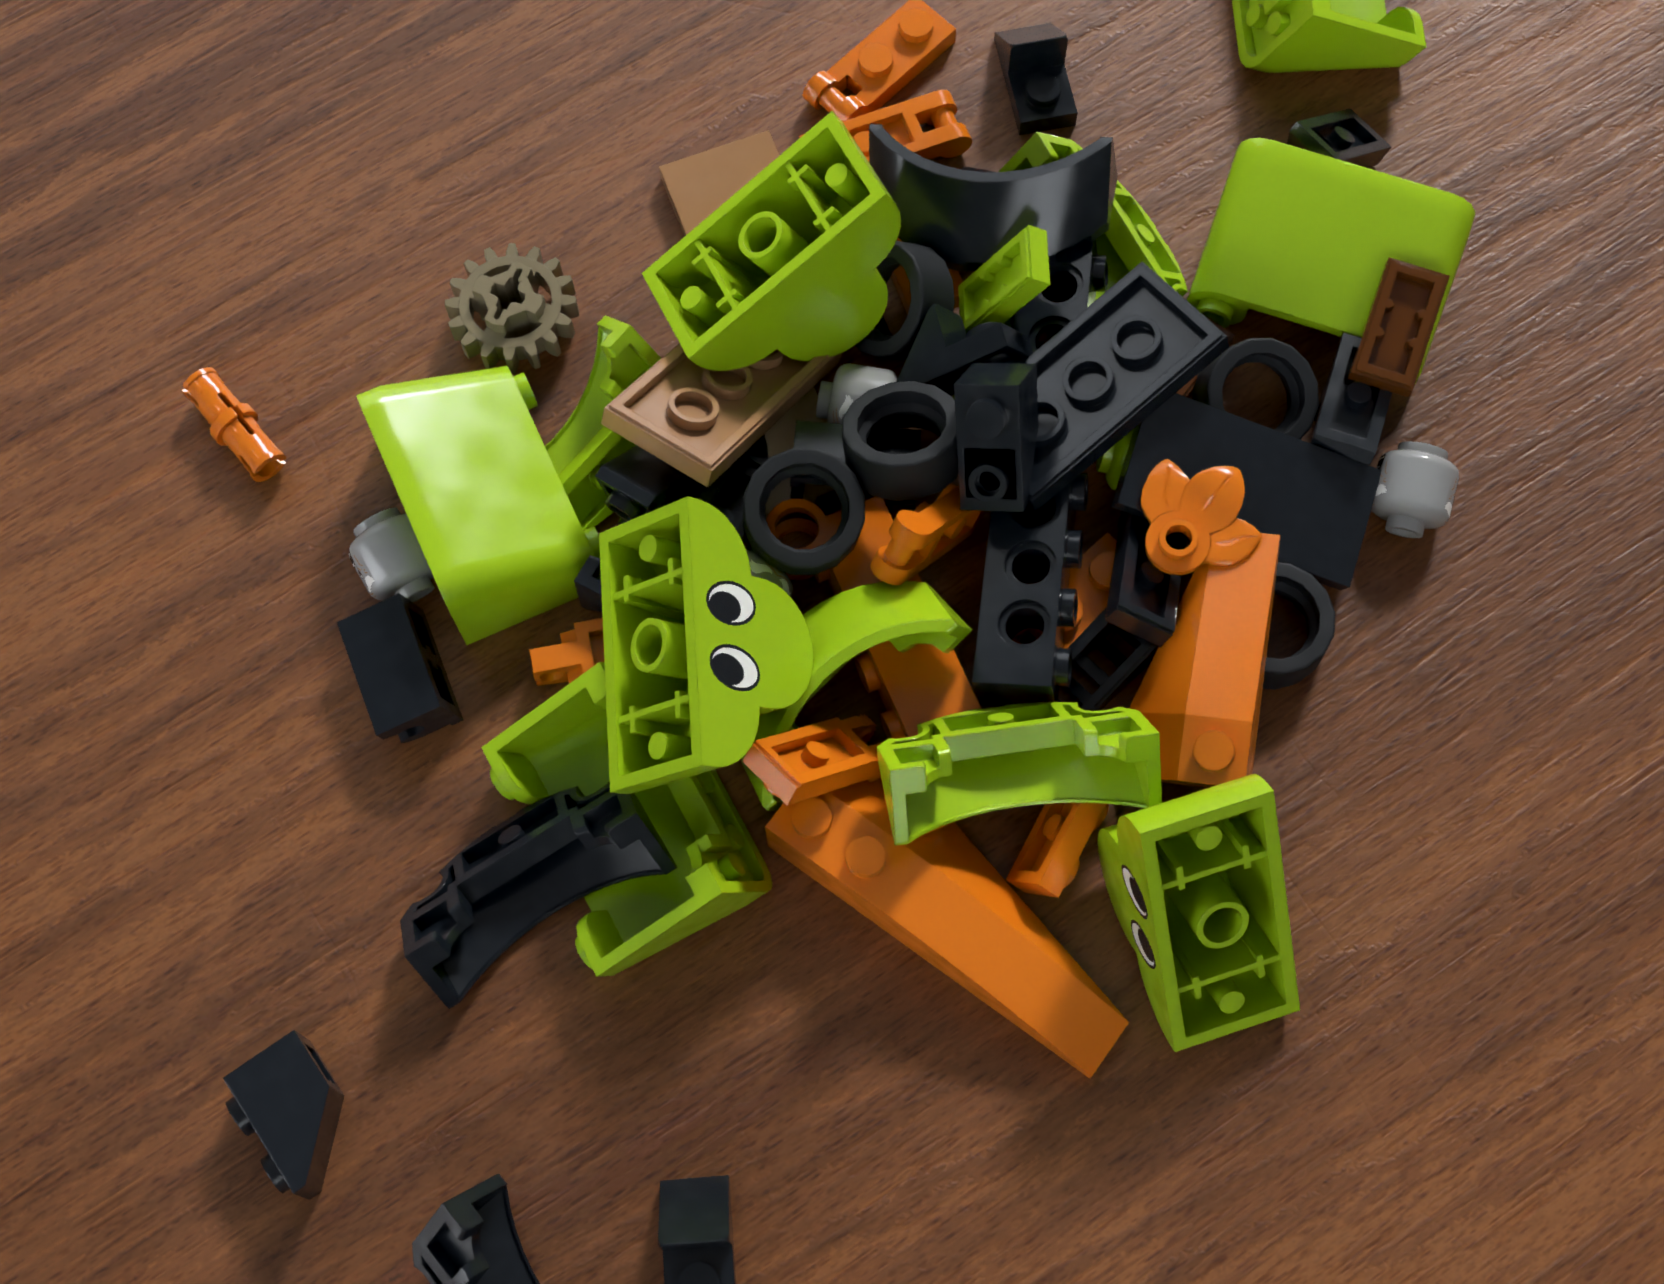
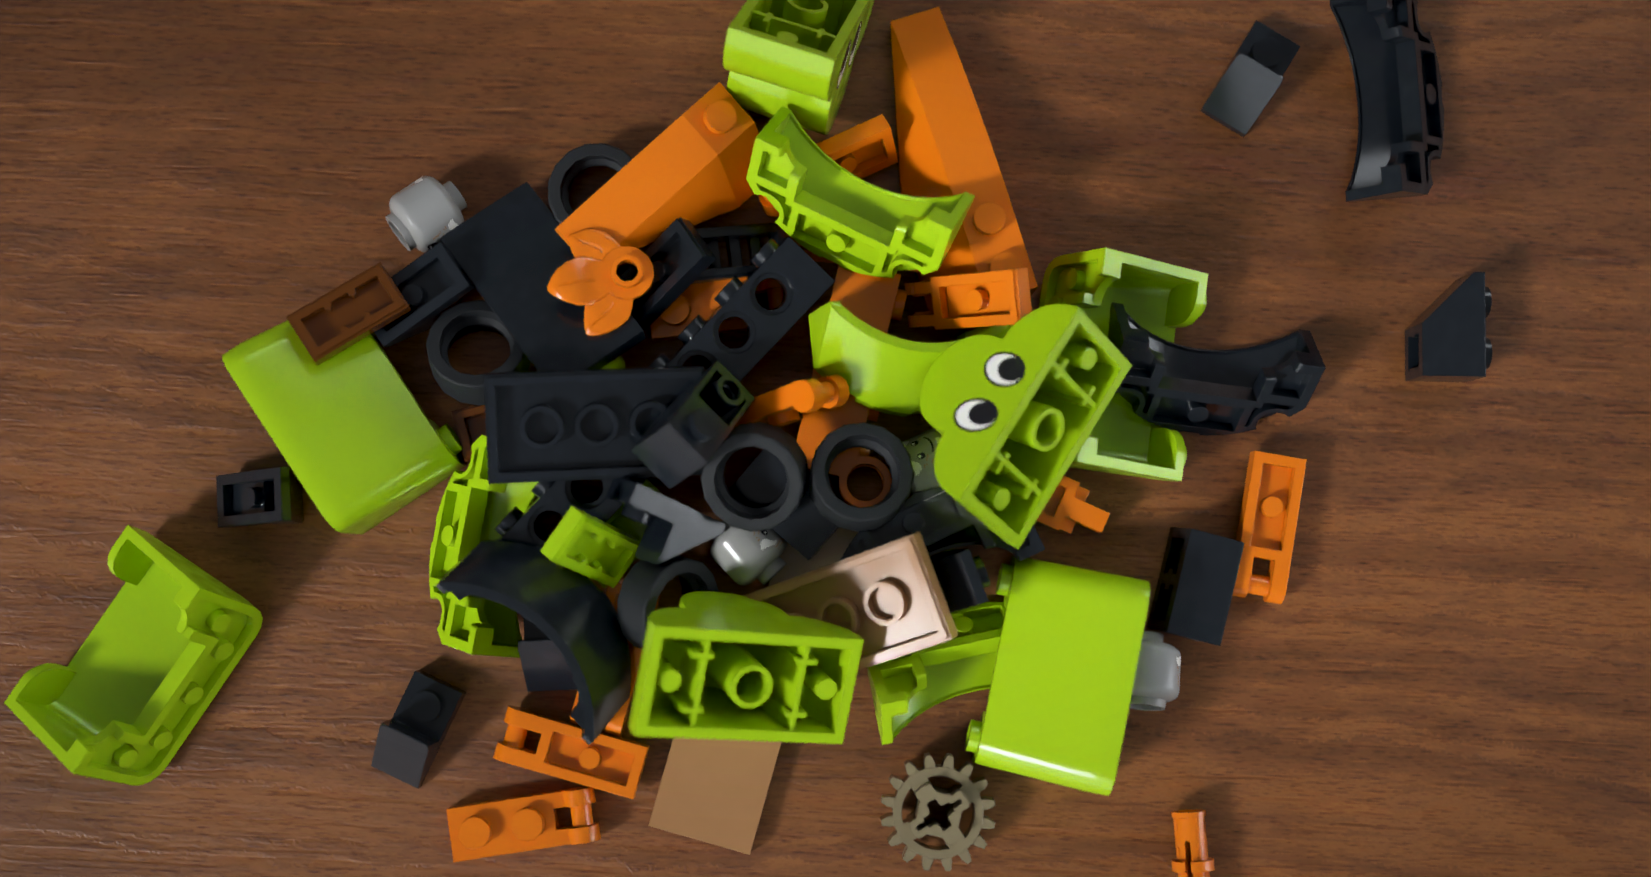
camera: 145 degrees left, 15 degrees up
(365, 783) = (1269, 523): none -> orange plate

